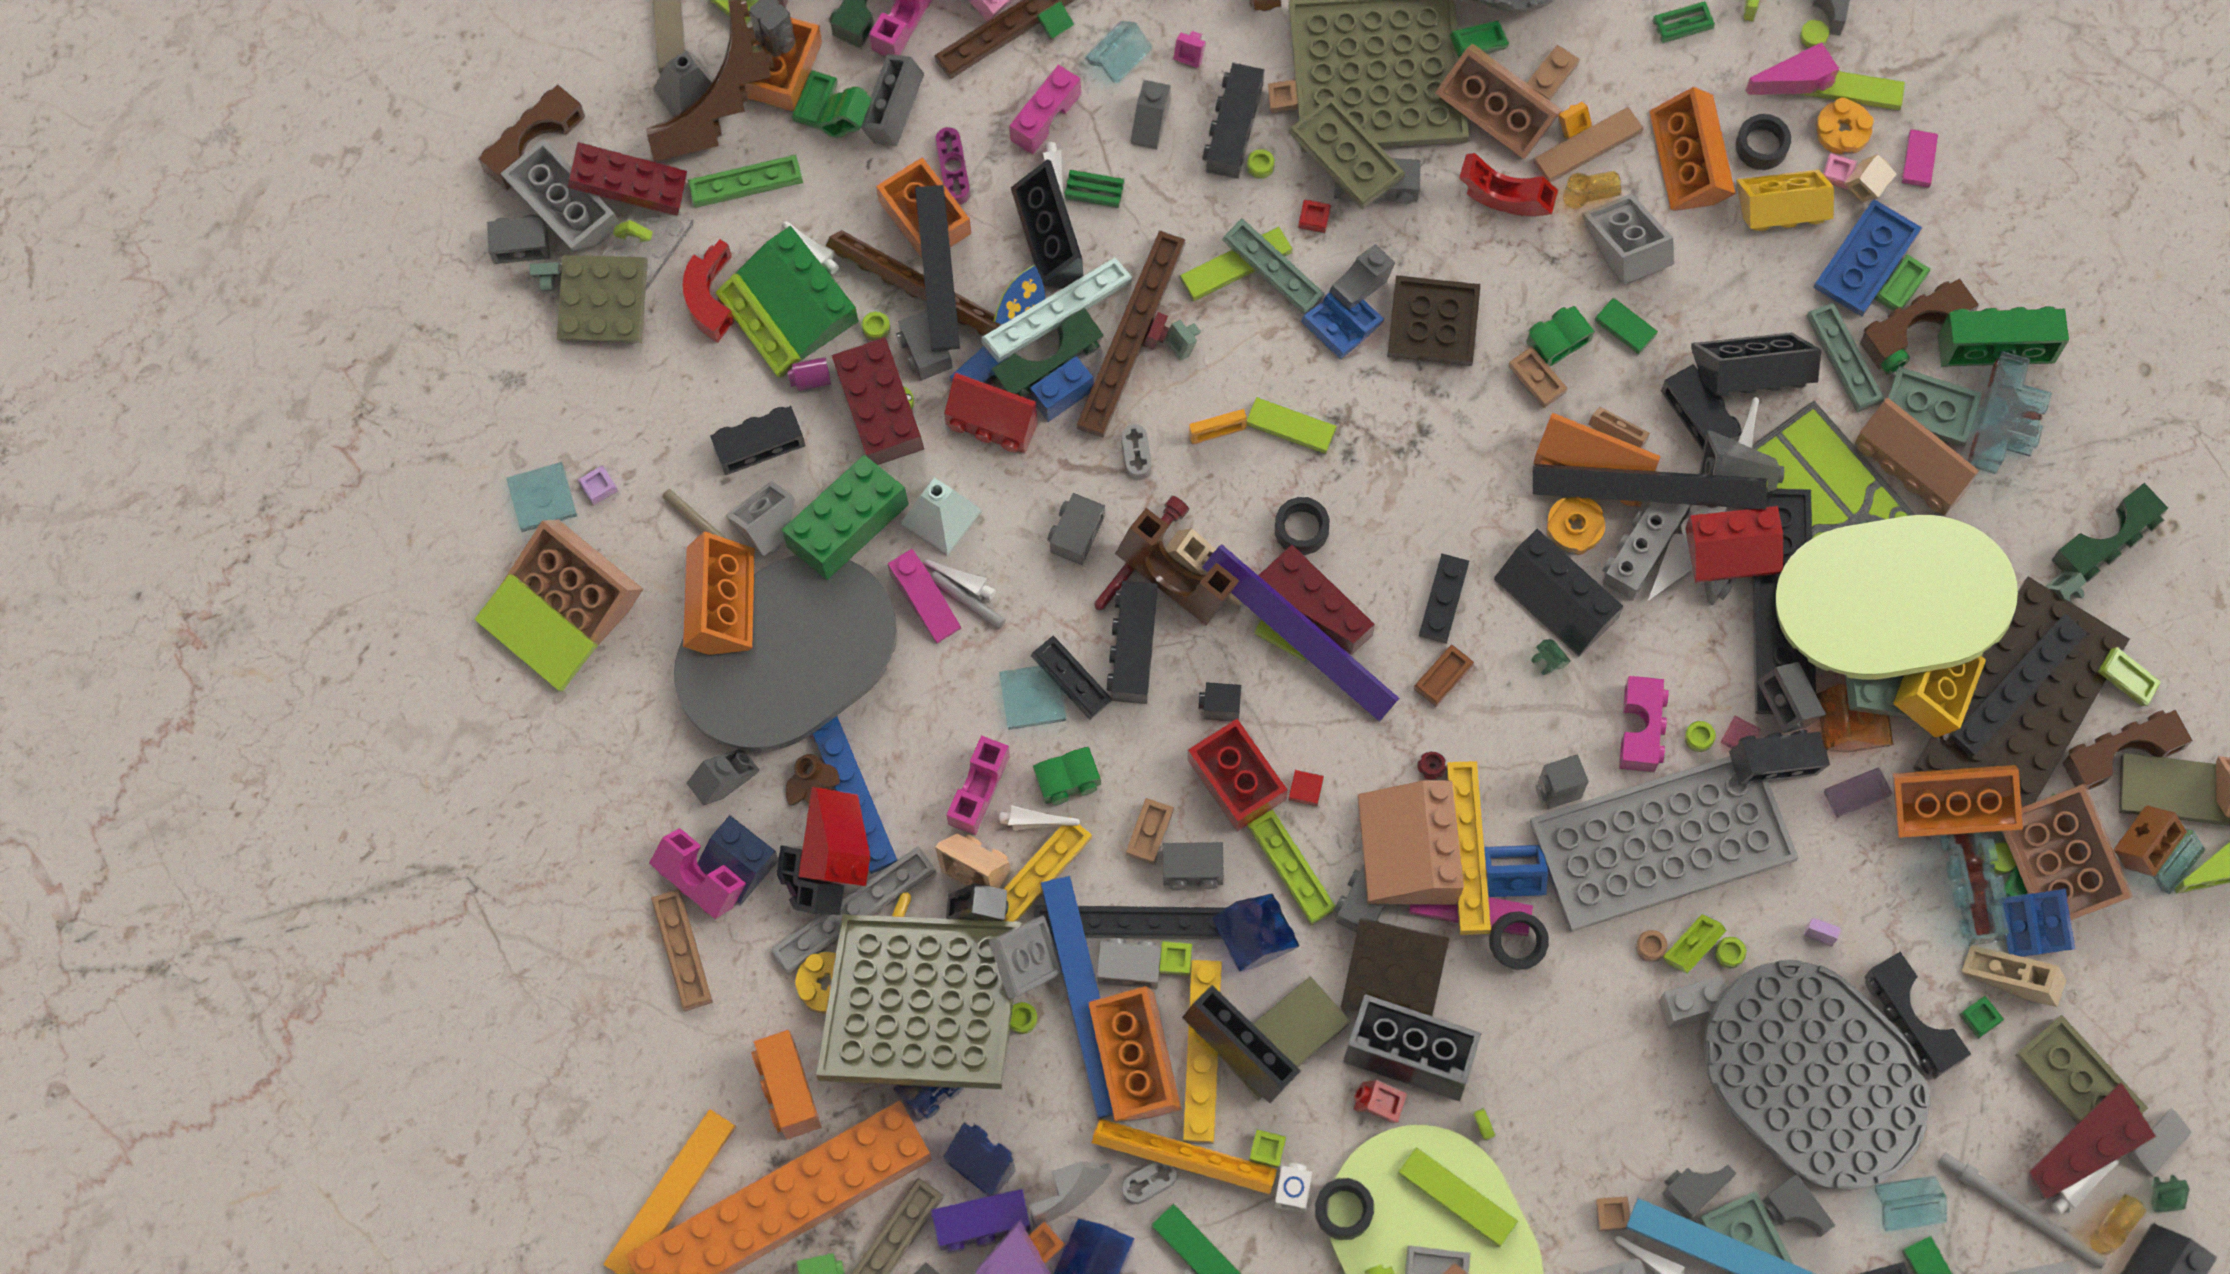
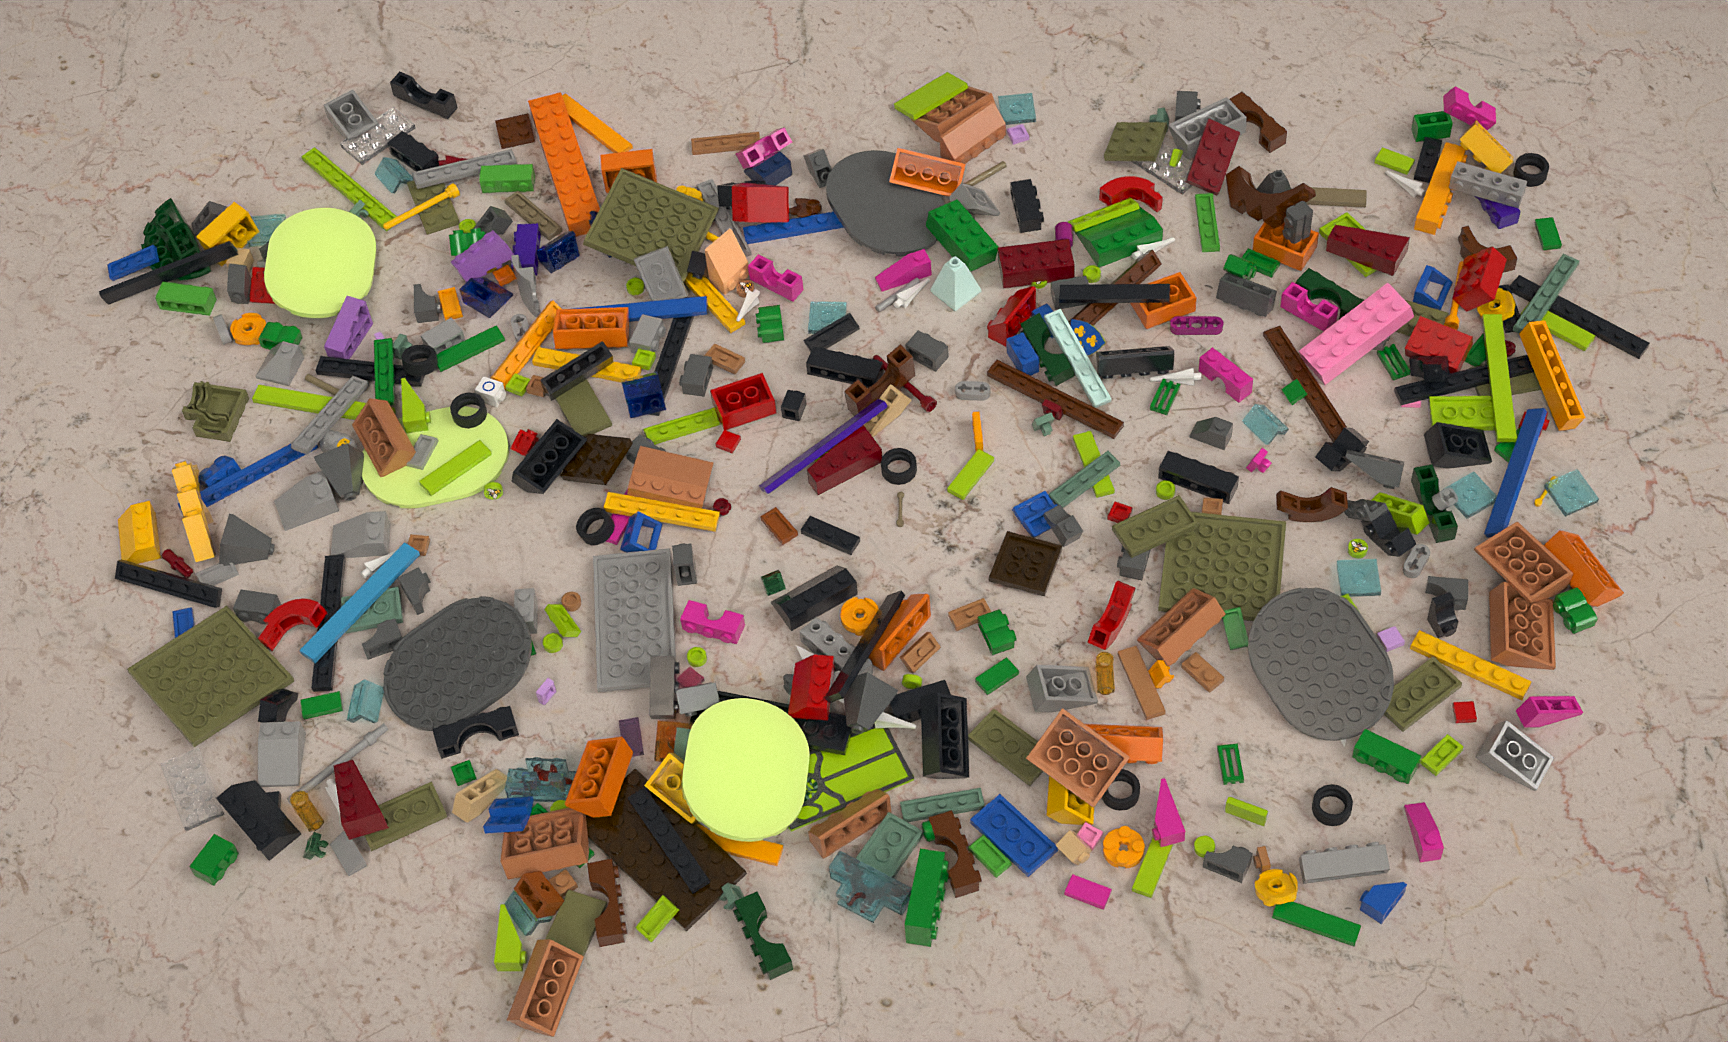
camera: 105 degrees right, 15 degrees down
(628, 543) = (973, 134): none -> nougat slope
(996, 836) = (743, 287): none -> medium nougat tile
(1263, 1115) = (534, 386): none -> medium nougat plate
(1397, 508) = (900, 523): none -> dark tan hinge
(1669, 430) = (911, 681): none -> lime tile
(1736, 284) = (1006, 745): none -> olive plate
(1758, 177) = (1077, 757): none -> nougat slope
(2114, 821) = (563, 882): none -> medium nougat plate

